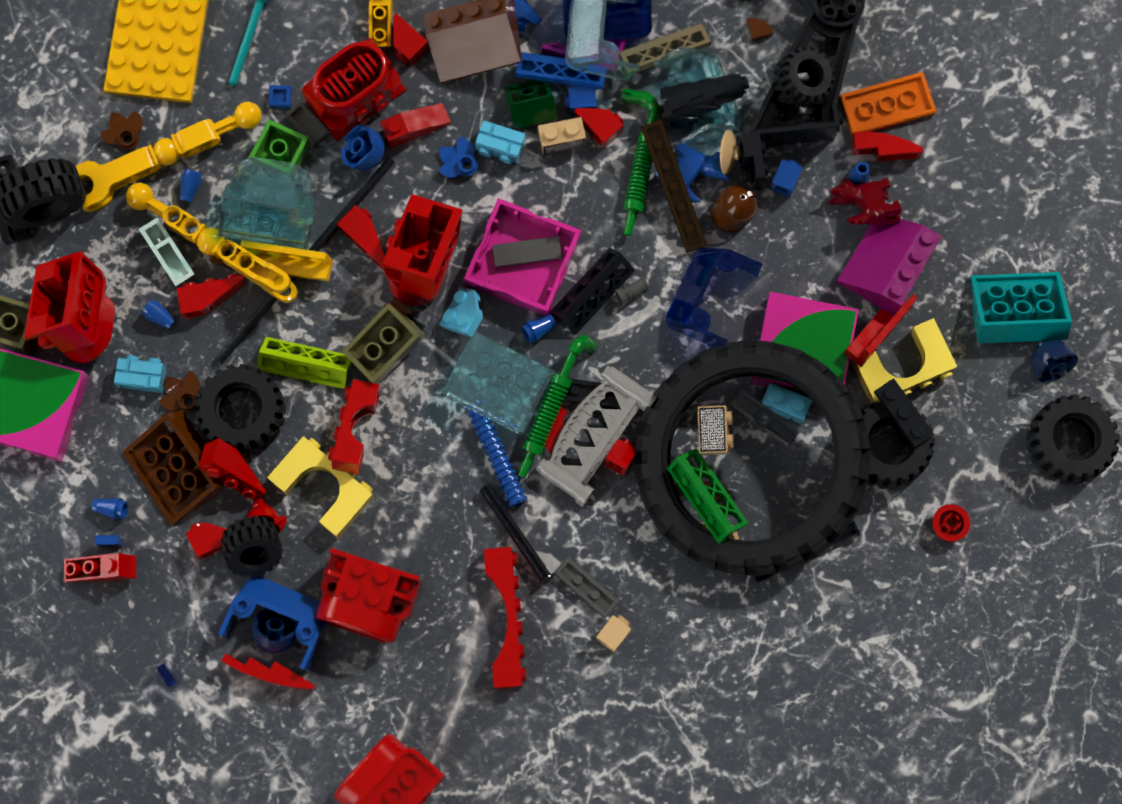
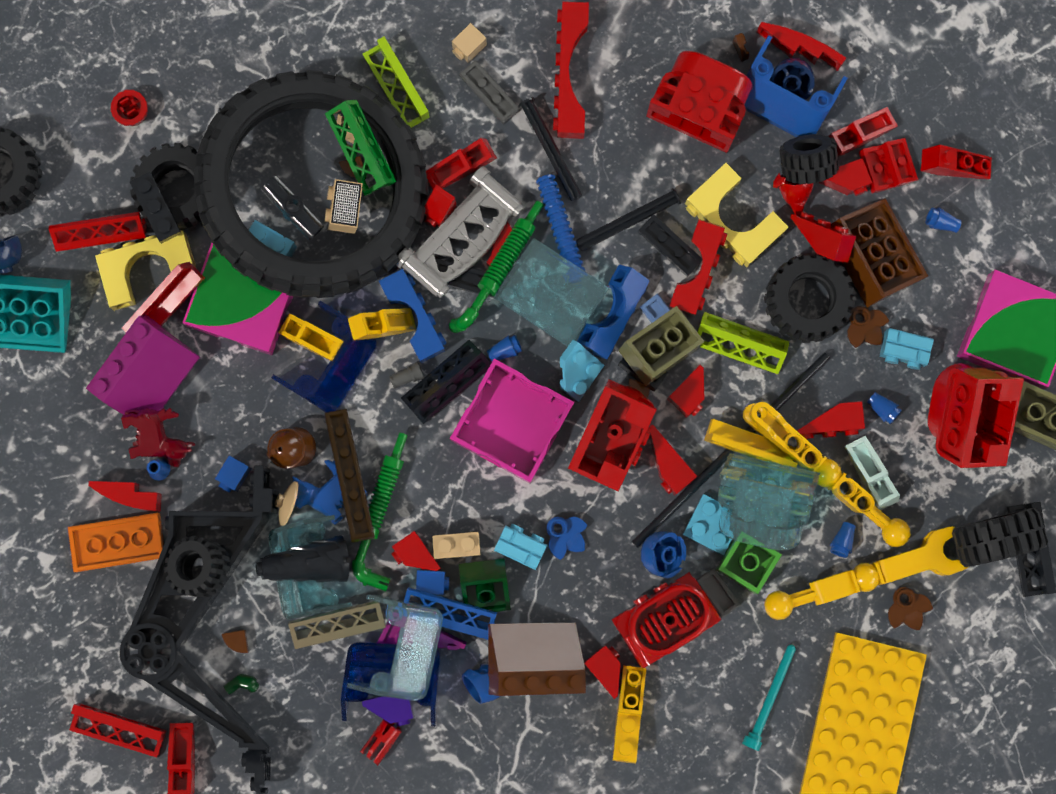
camera: 175 degrees left, 5 degrees up
(108, 541) = (946, 187): blue tile -> none
(168, 676) = (896, 54): clear blue tile -> none
(169, 559) = (889, 165): none -> red slope
(199, 589) = (863, 131): none -> red slope
(280, 96) = (743, 626): blue tile -> none
(325, 184) = (704, 526): none -> medium azure plate
(330, 665) = (738, 42): none -> reddish brown tile
(352, 304) = (690, 393): none -> red slope
(385, 450) = (670, 245): none -> black plate
(394, 386) = (654, 308): none -> medium blue tile
(414, 124) = (606, 578): red slope -> none
(430, 470) = (628, 220): none -> black axle
(442, 350) = (627, 289): none -> blue arch
(527, 252) = (507, 428): dark grey tile -> none
(605, 506) = (461, 164): none -> red slope
(616, 325) = (400, 291): none -> blue arch
(662, 332) = (381, 323): none -> yellow slope
(675, 584) = (401, 77): none -> lime fence
(730, 311) = (310, 337): none -> yellow slope
(958, 391) = (98, 231): none -> red fence

